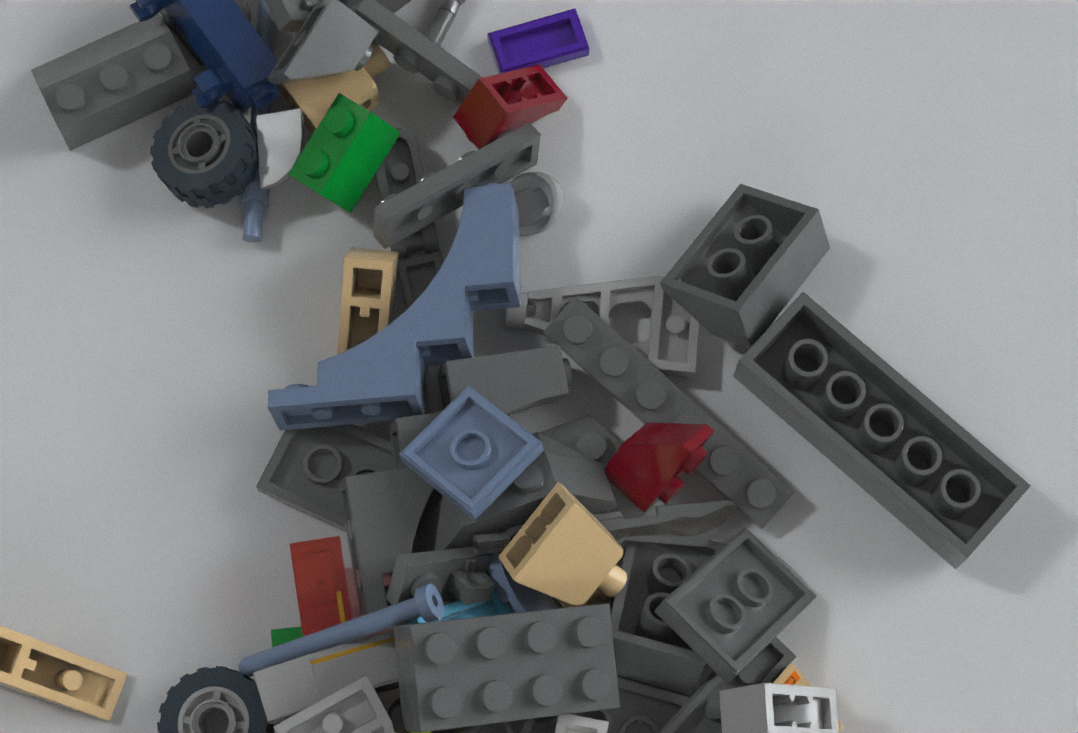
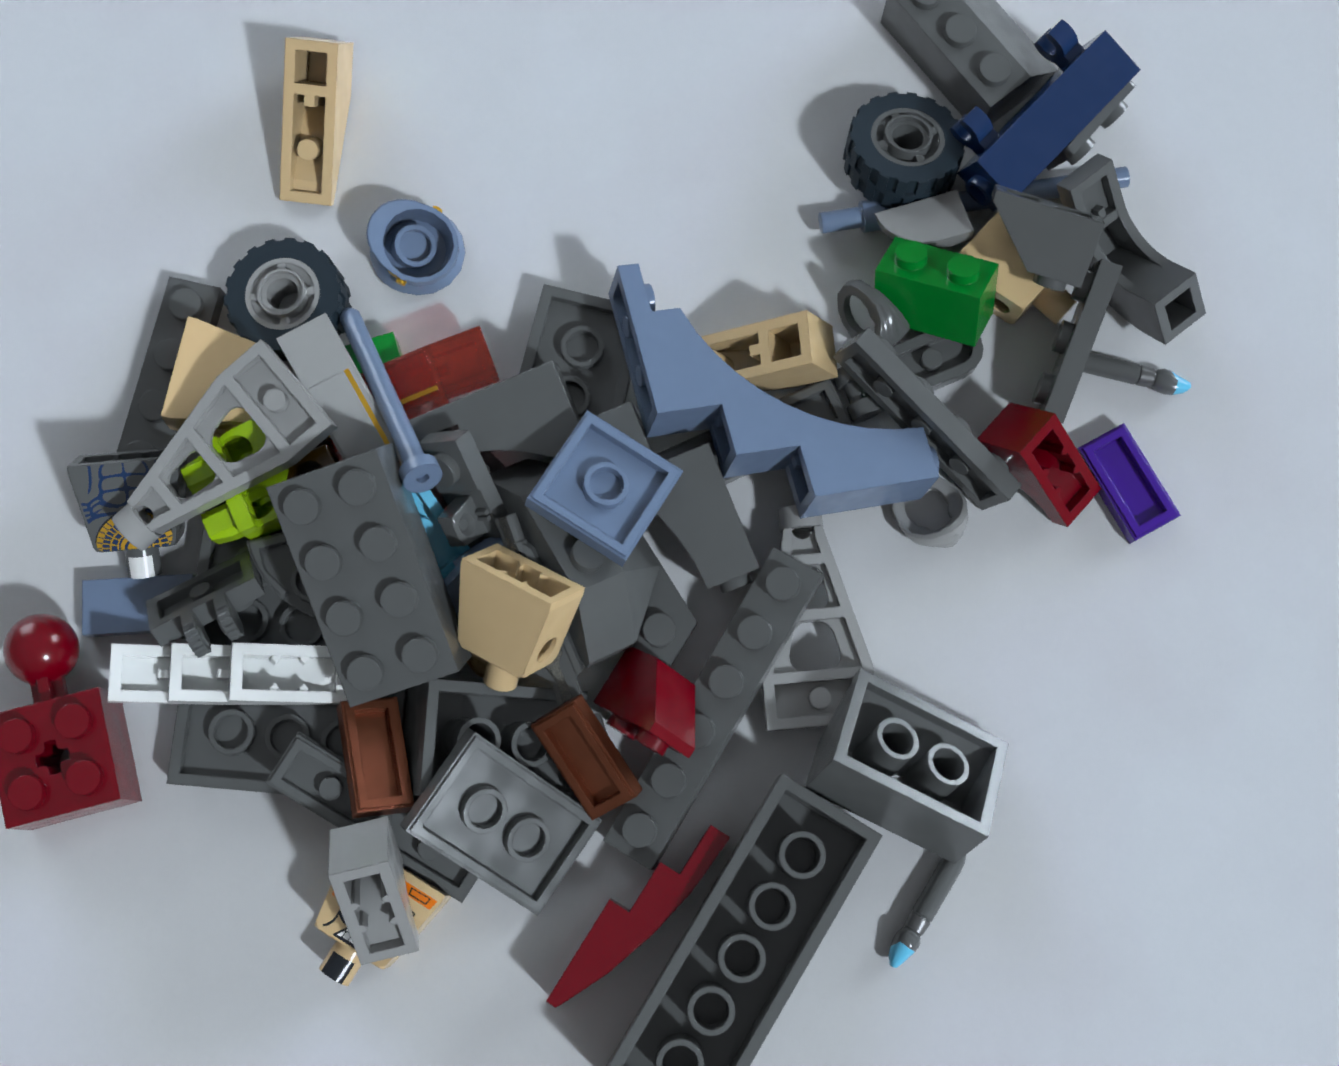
camera: 80 degrees right, 5 degrees up
(190, 600) = (414, 247): none -> sand blue piece
(358, 197) = (886, 316): none -> dark grey piece
(664, 701) = (375, 758): none -> copper tile
(692, 524) = (586, 757): none -> copper tile
(842, 526) = (623, 930): none -> dark red slope
(883, 299) = (908, 938): none -> dark grey piece

